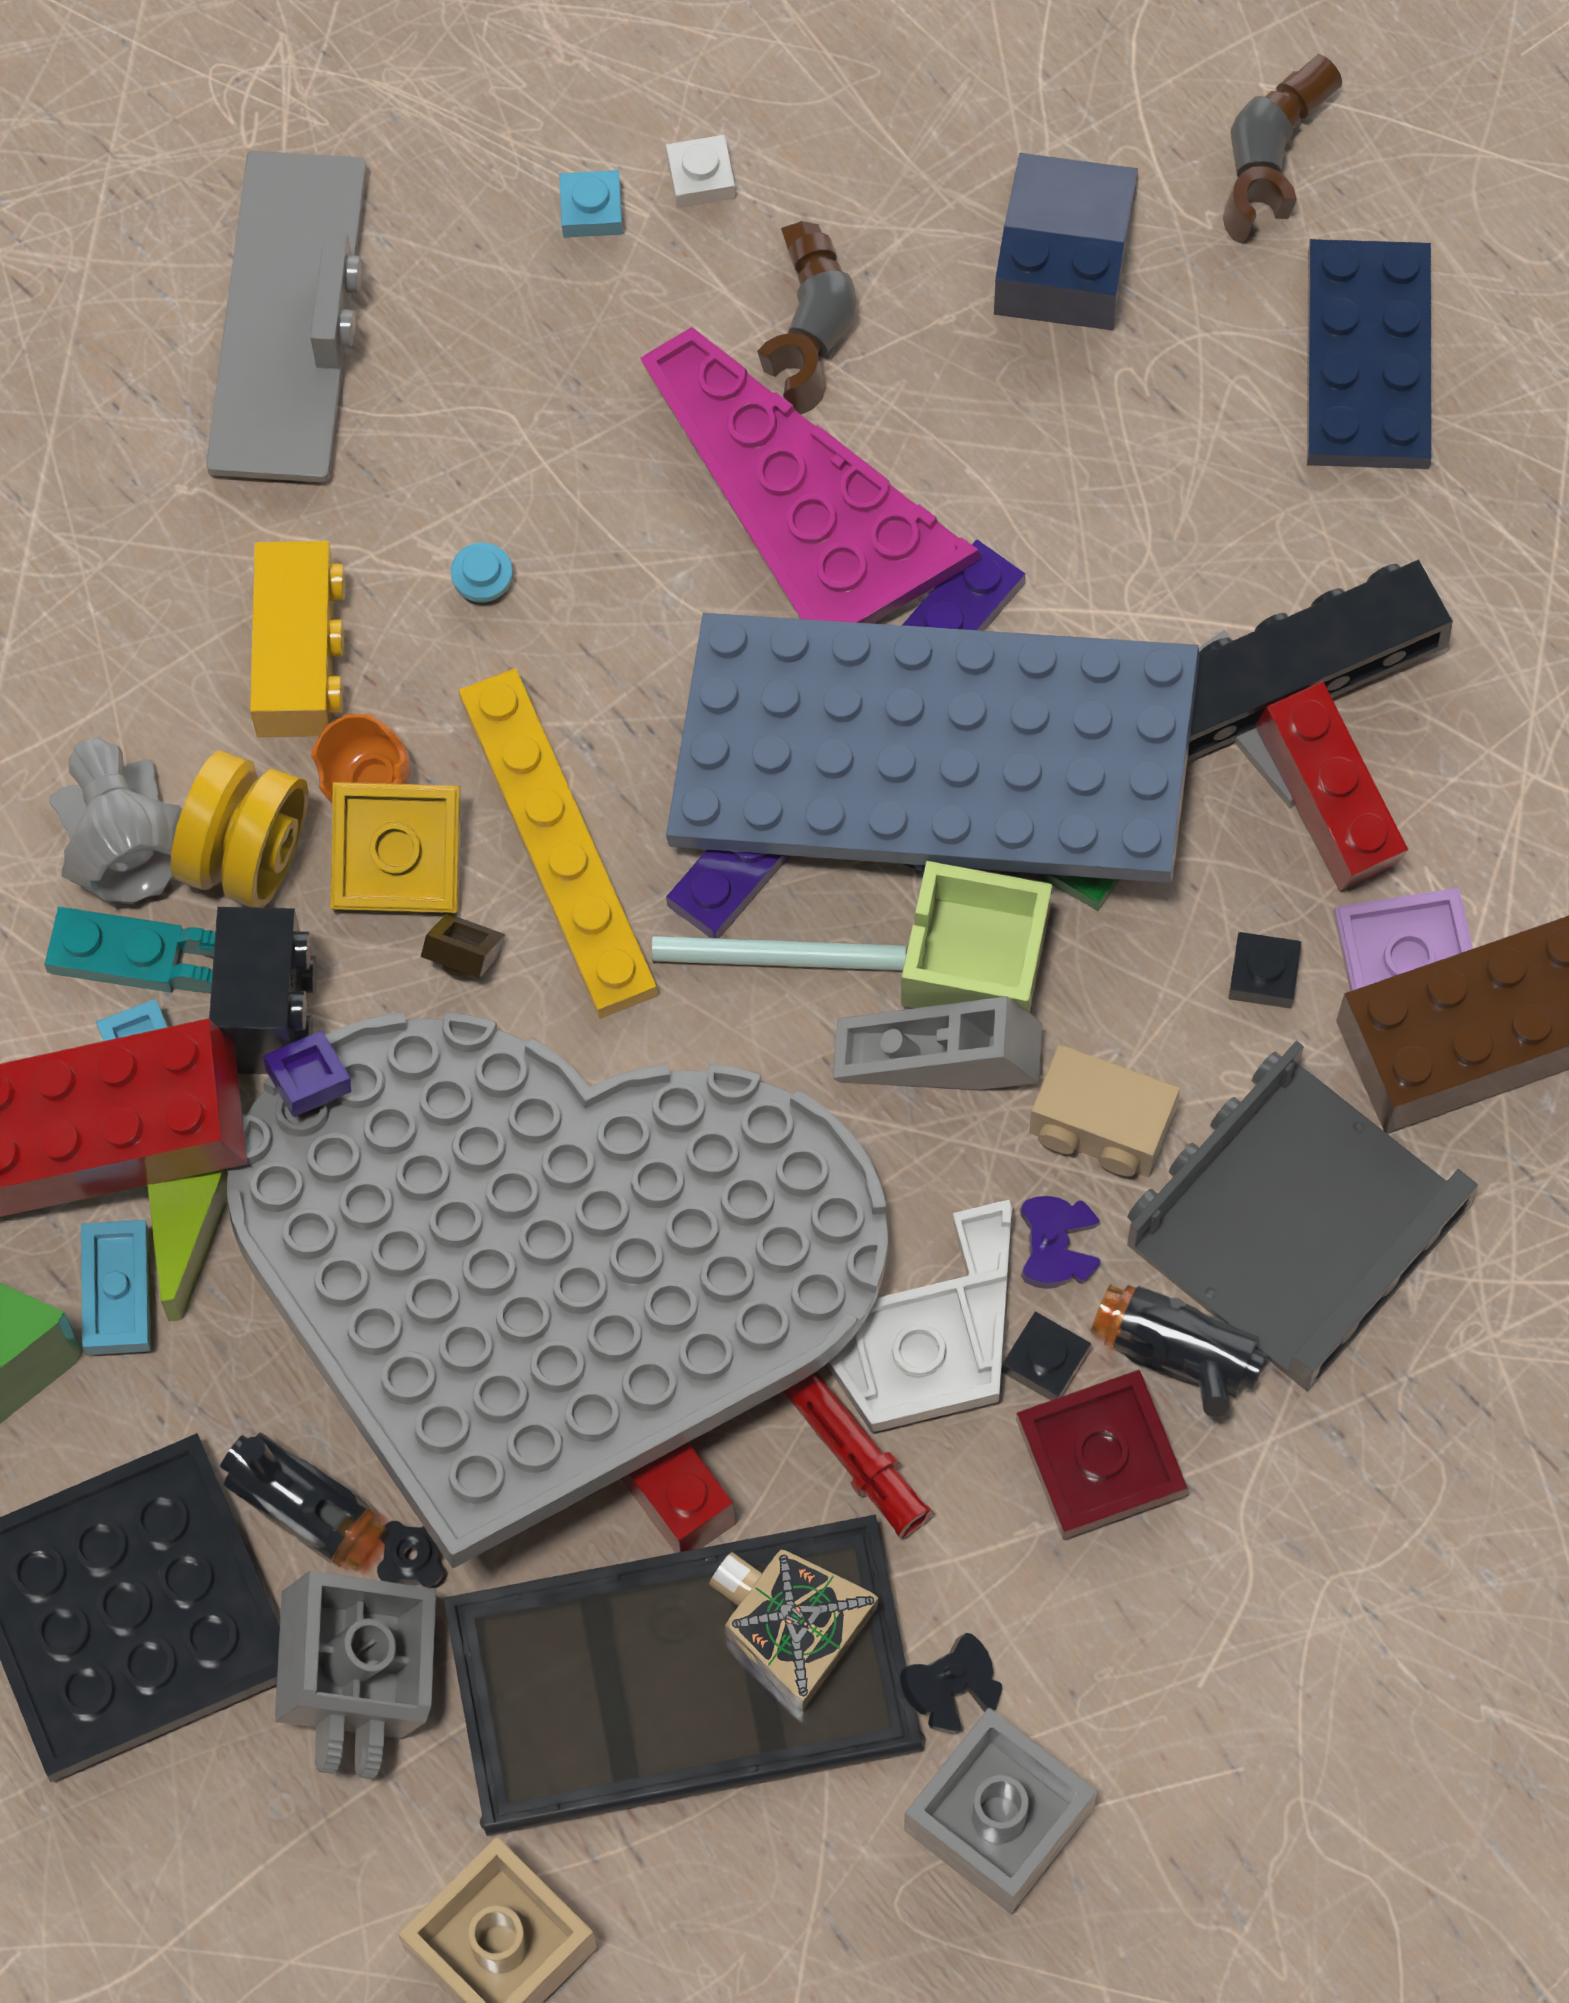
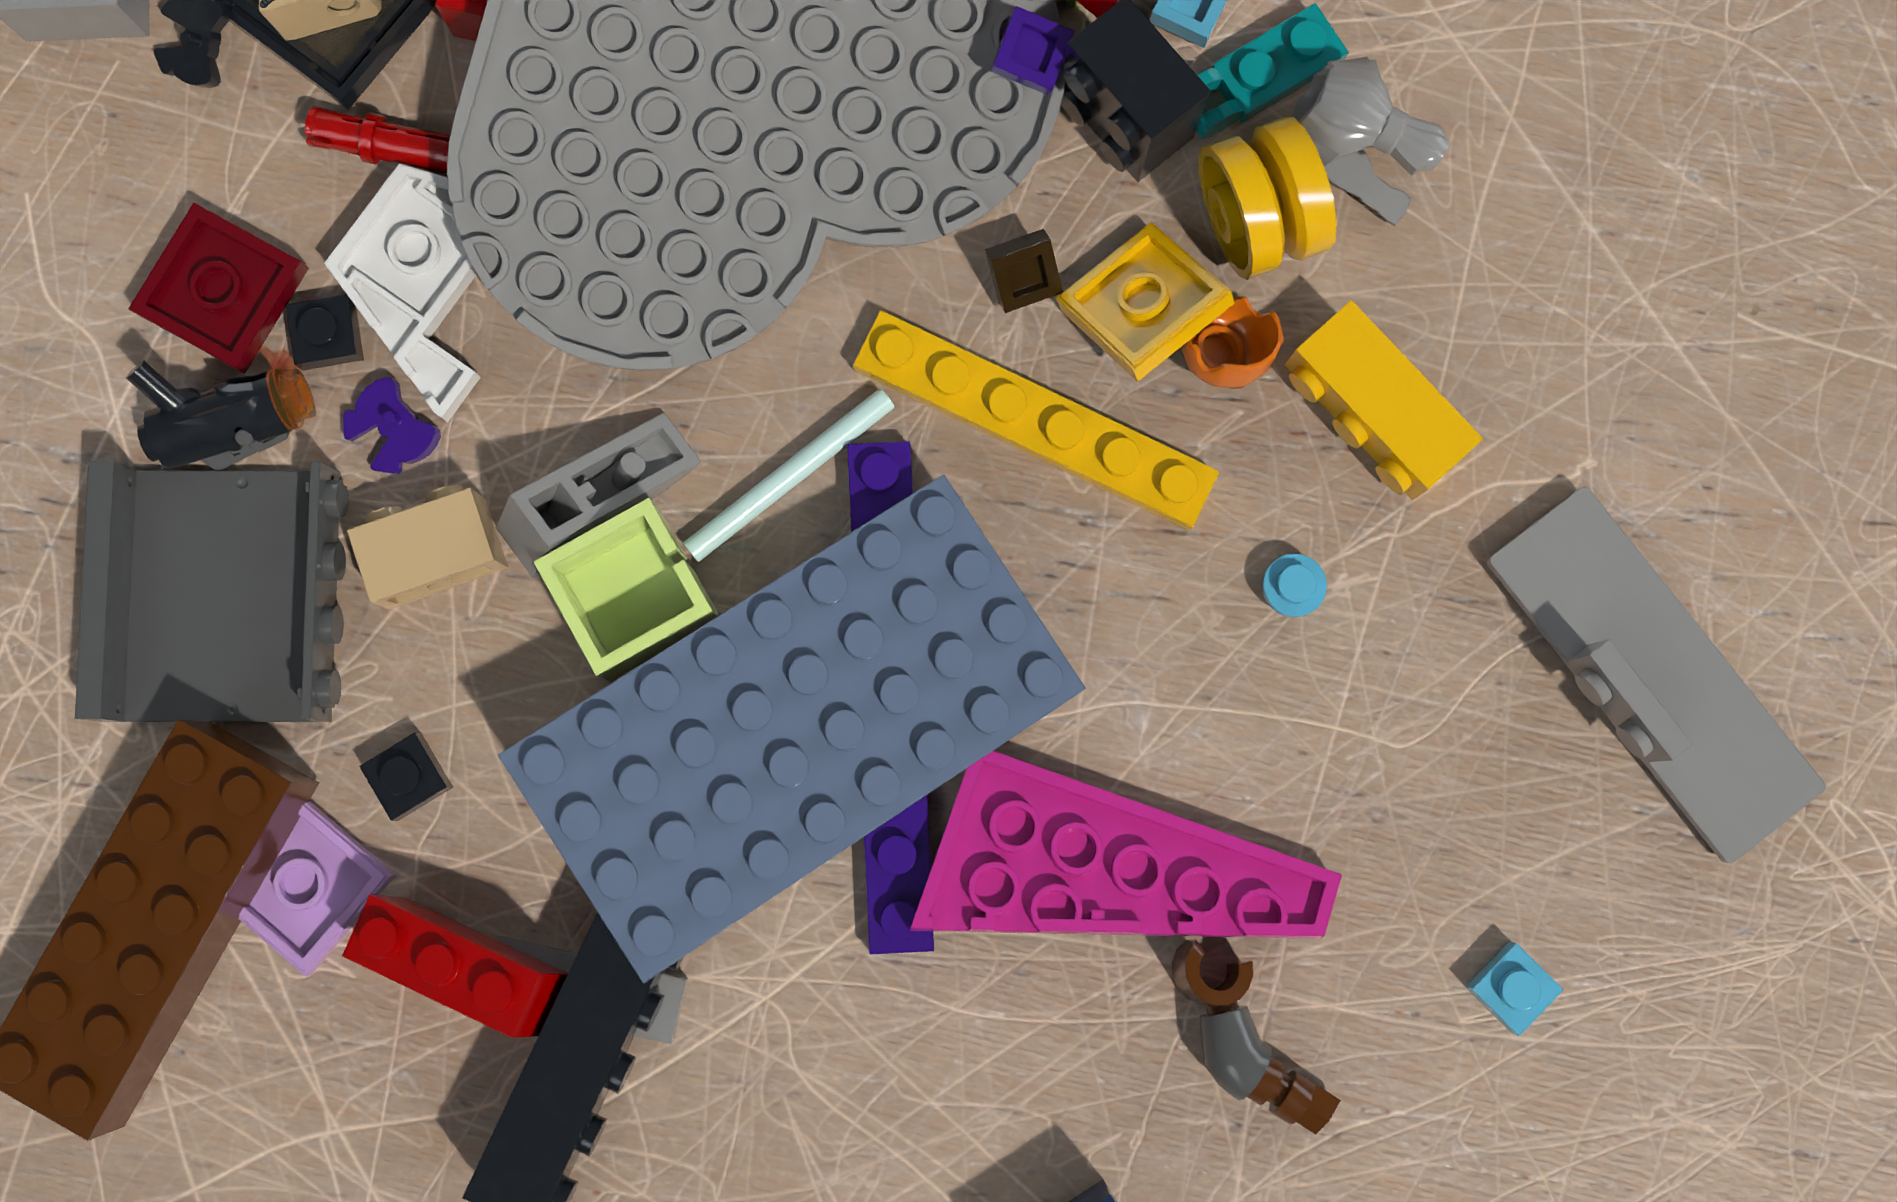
camera: 135 degrees right, 15 degrees up
(700, 171) = (1455, 1098): white plate -> none

